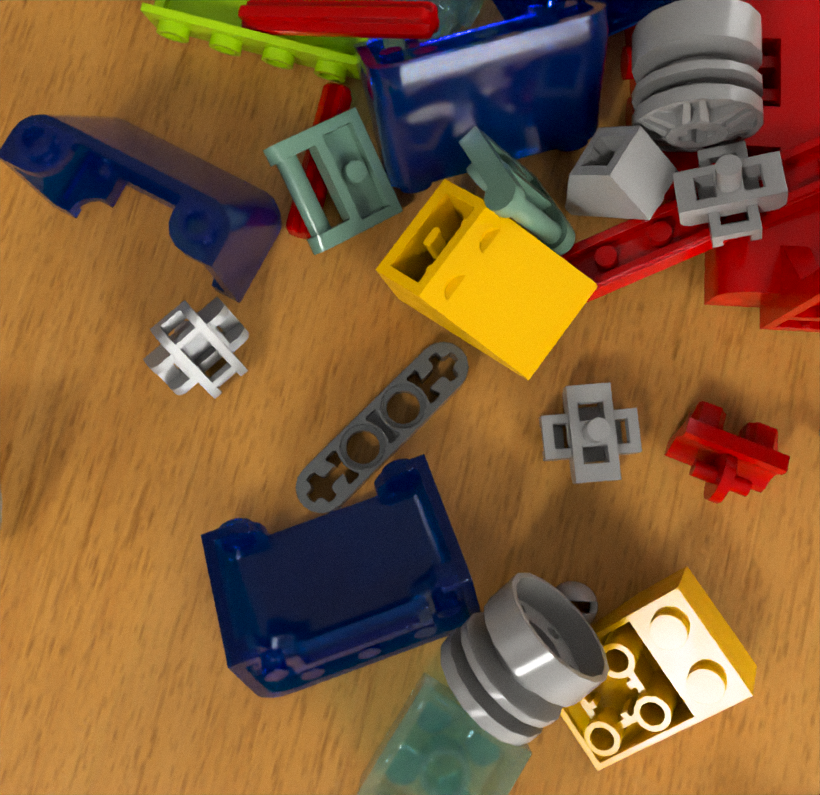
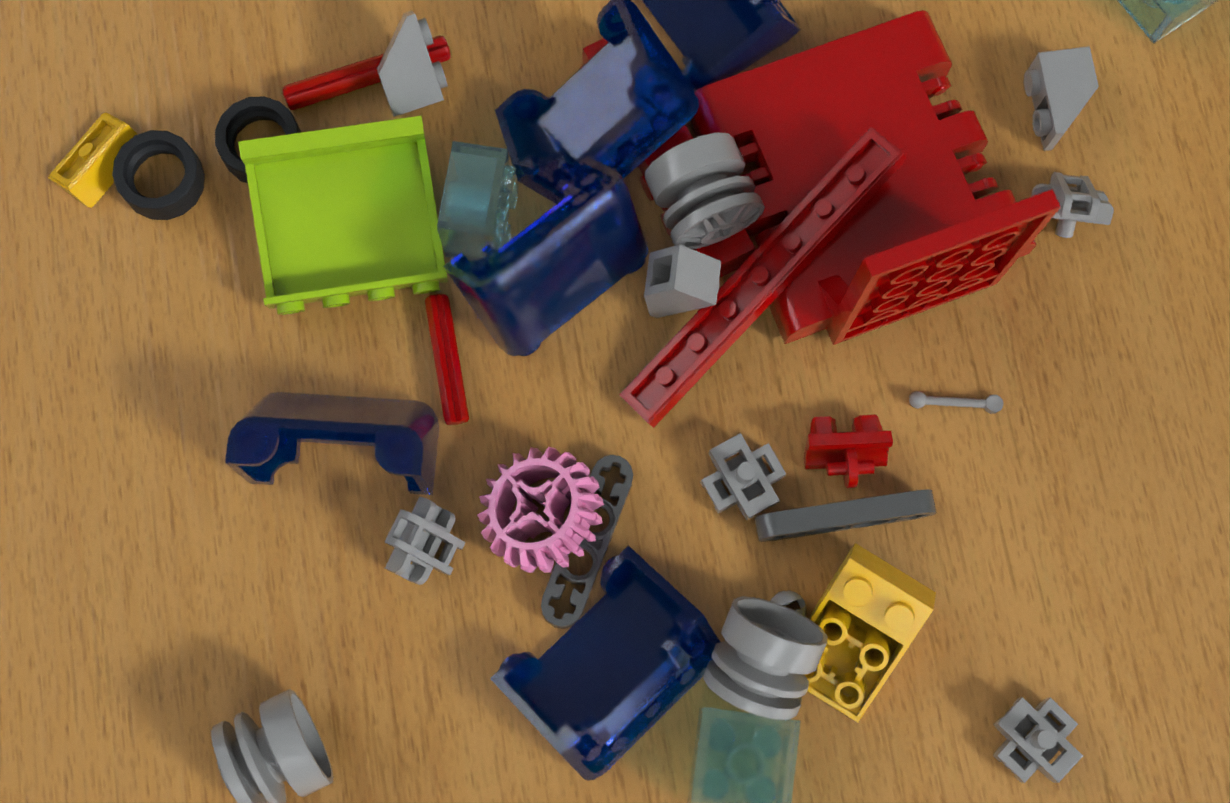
camera: 30 degrees left, 5 degrees down
(313, 361) = (511, 530): none -> bright pink gear
(342, 18) = (423, 252): red axle -> none
(349, 172) = (477, 360): sand green plate -> none
(485, 279) = (615, 397): yellow slope -> none
(515, 191) = (611, 323): sand green plate -> none
(691, 529) = (845, 515): none -> dark grey beam
(730, 189) = (761, 261): light grey piece -> none

